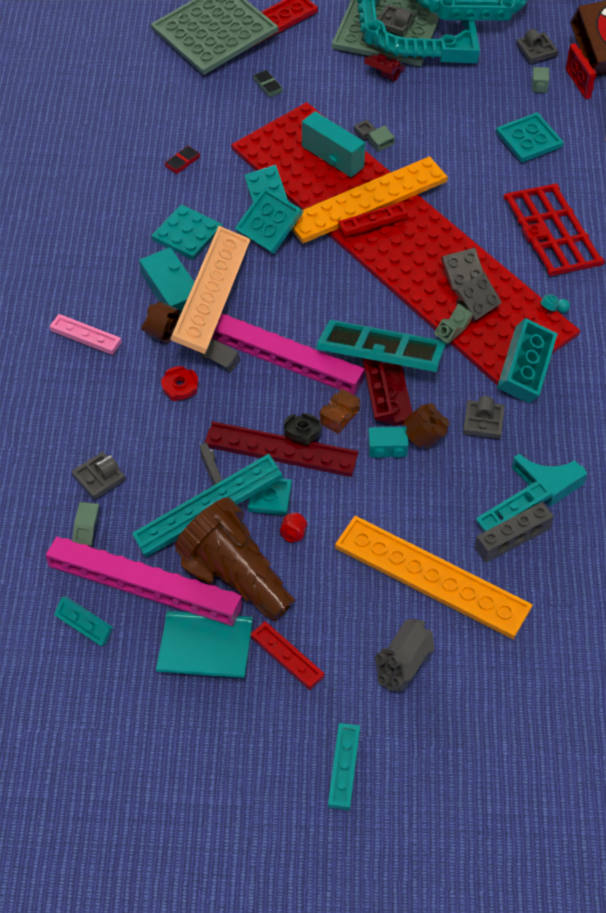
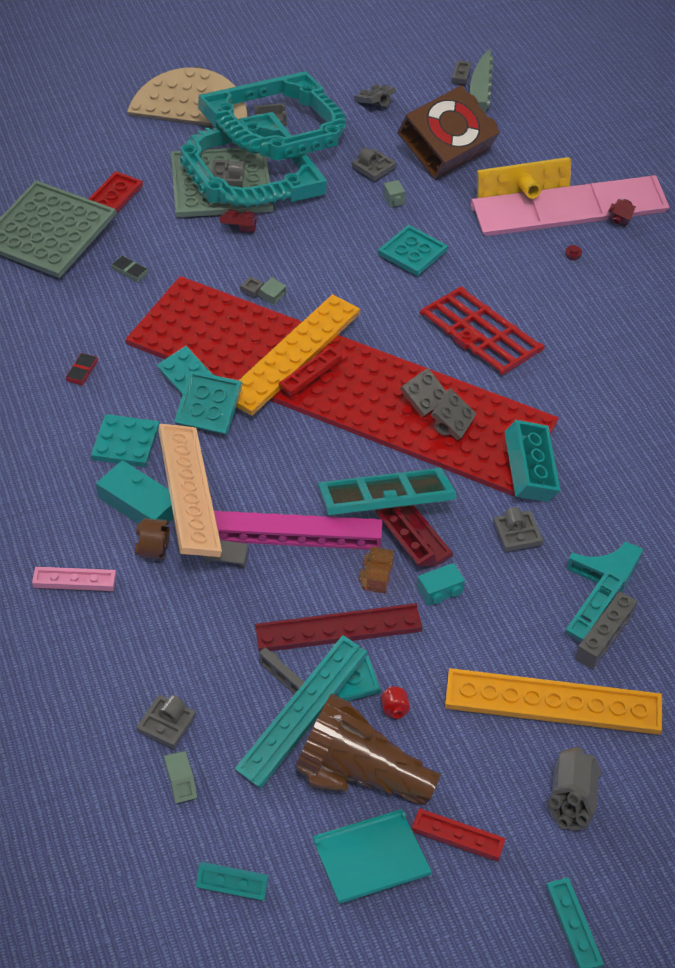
camera: 25 degrees left, 5 degrees down
(145, 581) = (273, 813): dark pink brick -> none
(179, 392) = (201, 606): red plate -> none
(294, 428) = (344, 605): pearl dark grey plate -> none
(333, 144) = (235, 308): teal brick -> none
(426, 425) = (472, 555): reddish brown brick -> none
(455, 325) = (444, 448): sand green slope -> none
(551, 303) = (524, 399): teal plate -> none
(580, 71) = (429, 175): red plate -> none

